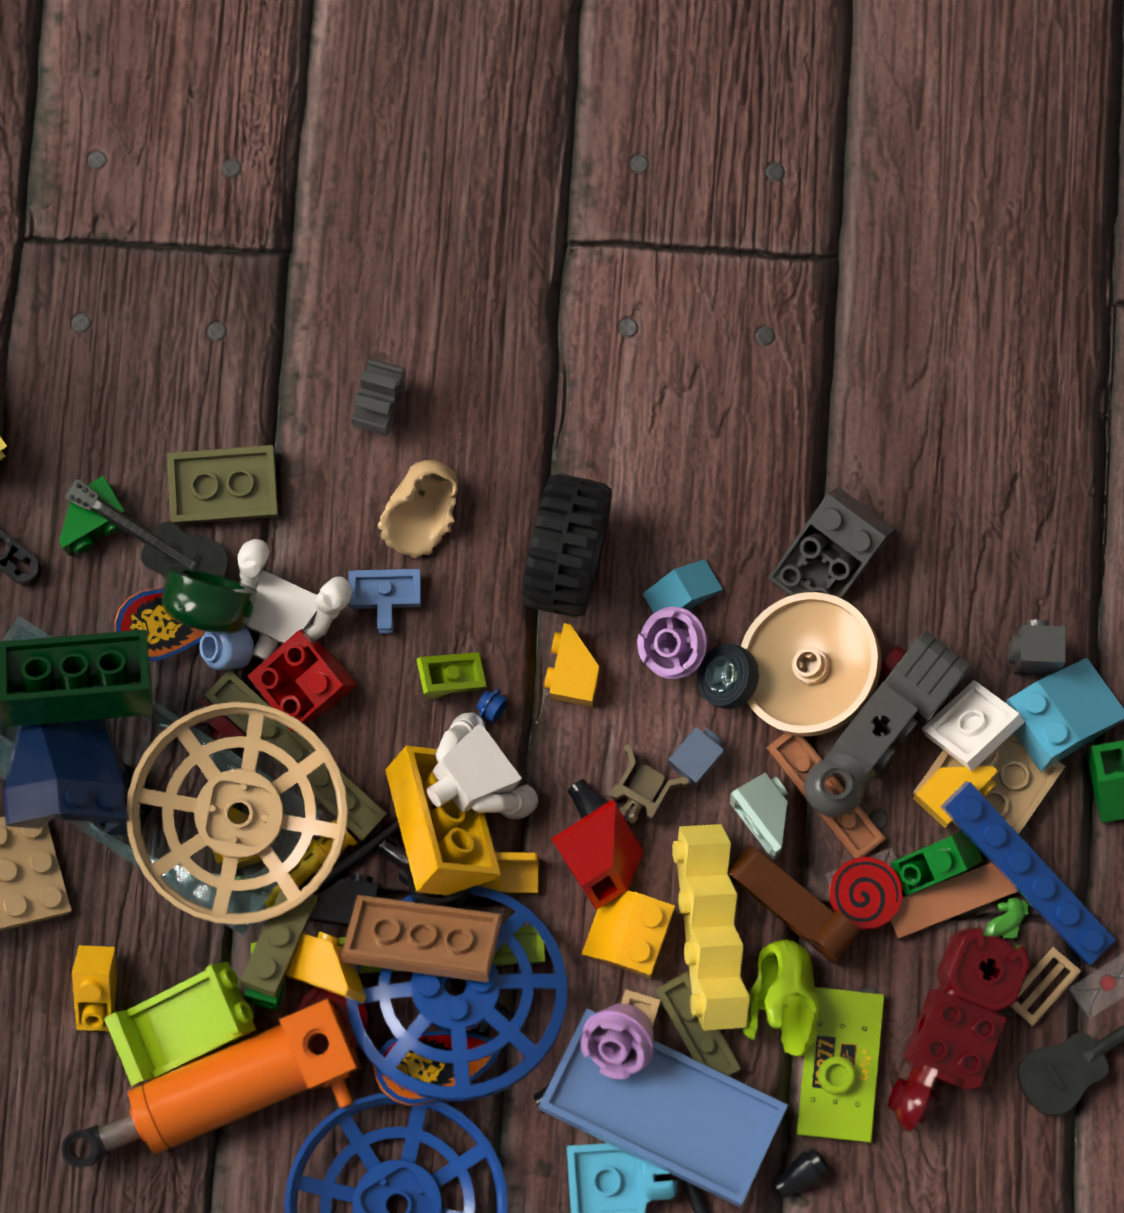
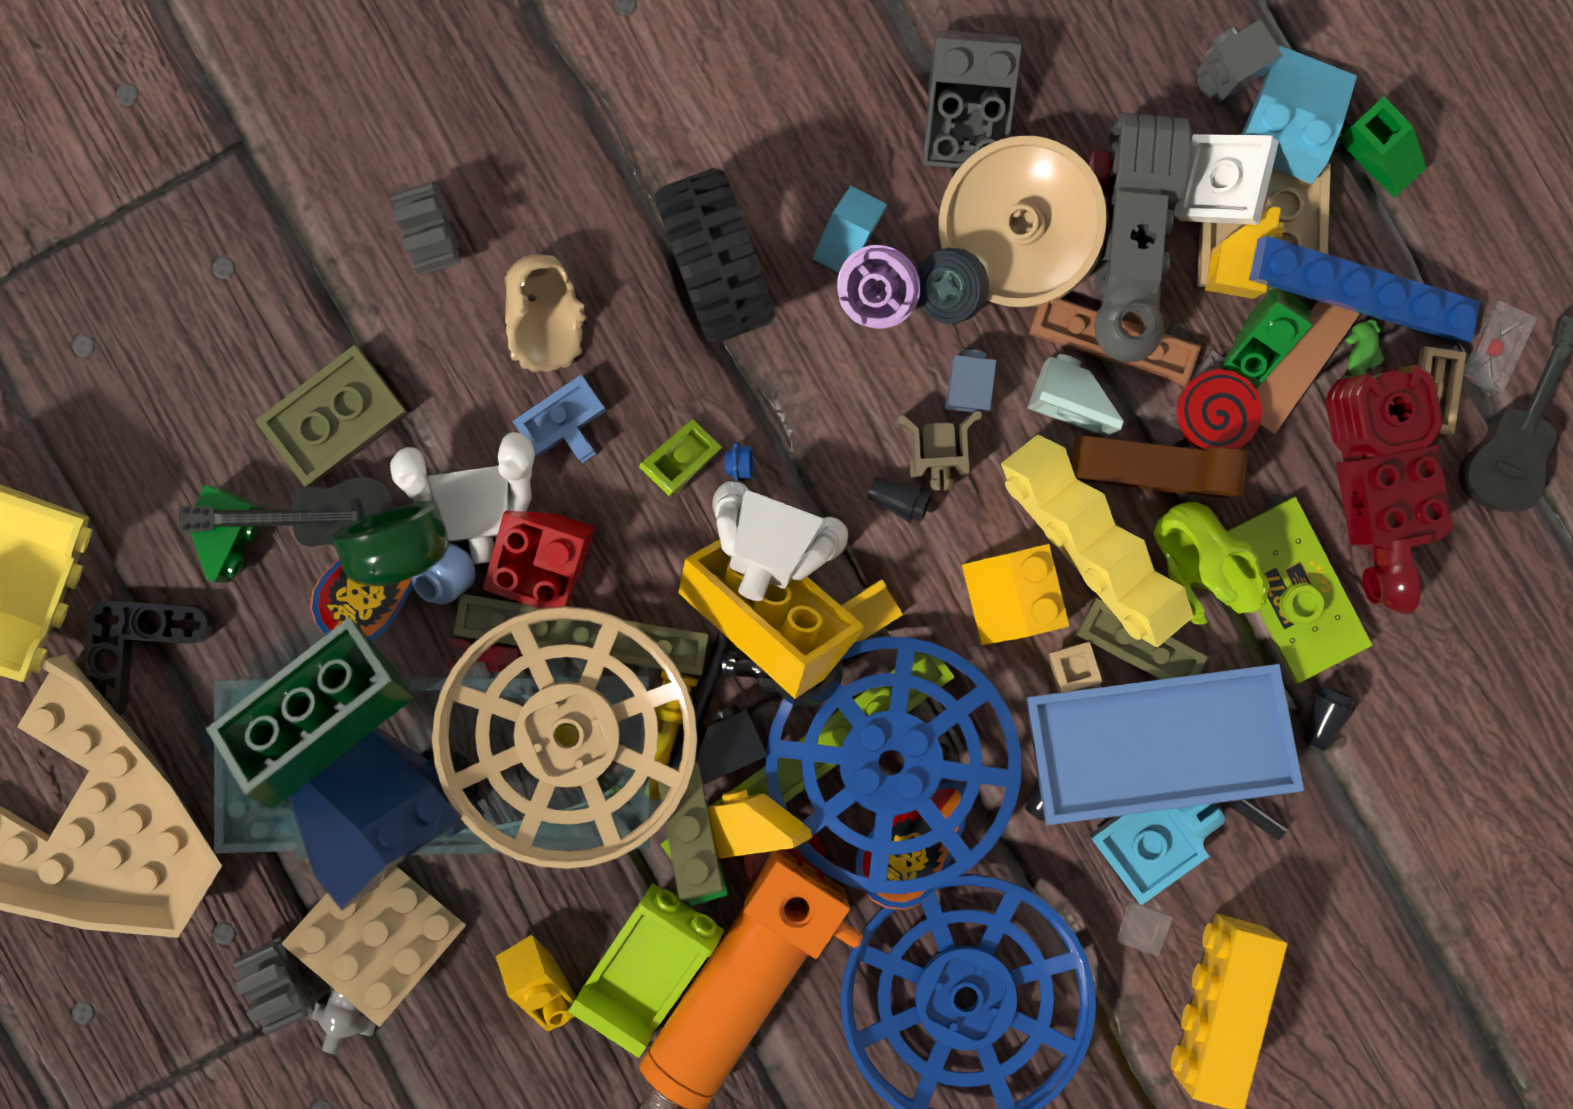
camera: 35 degrees left, 10 degrees up
(422, 938) = (829, 739): medium nougat tile -> none
(575, 670) = (798, 376): yellow slope -> none
(600, 853) = (943, 540): red slope -> none
(618, 1040) = (1086, 712): lavender cone -> none

